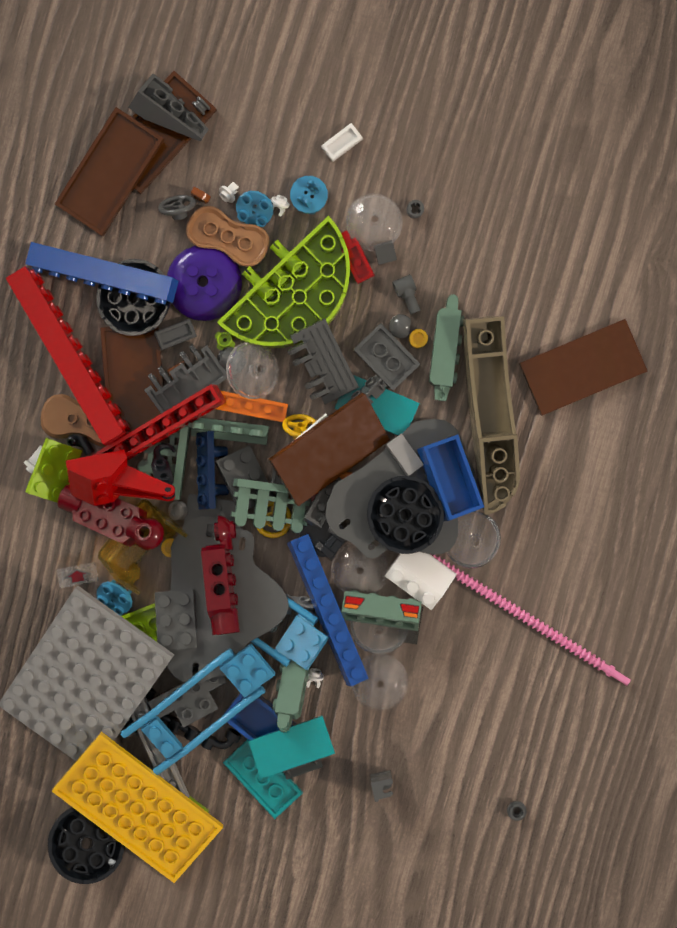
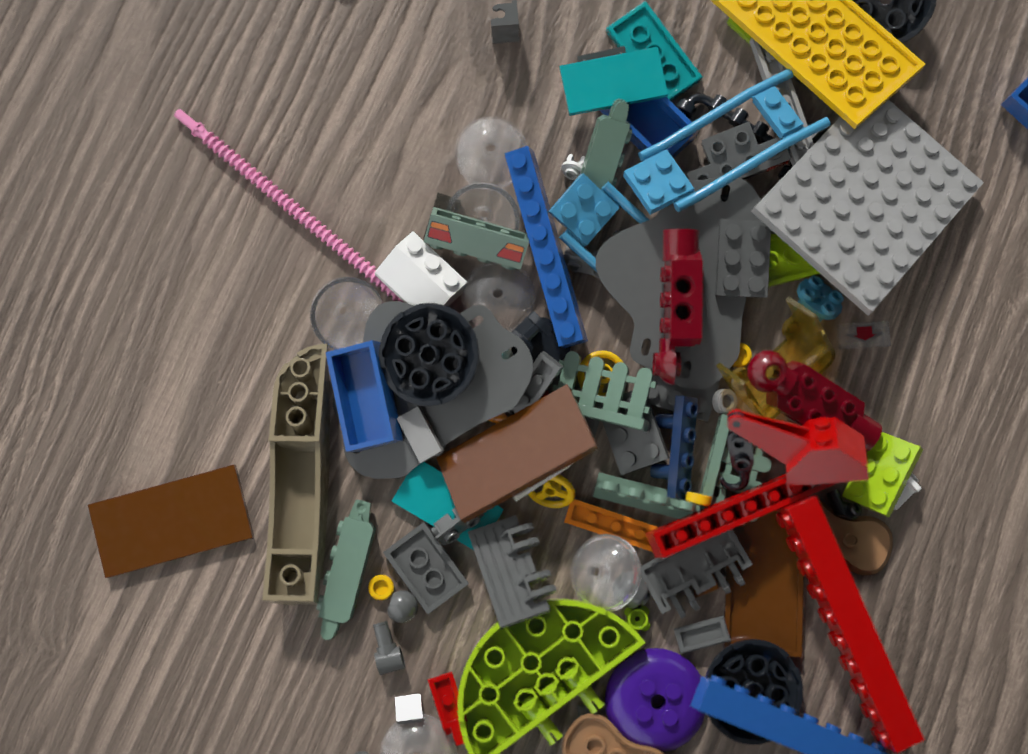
camera: 165 degrees left, 5 degrees down
(189, 433) = (699, 499): none -> yellow tile

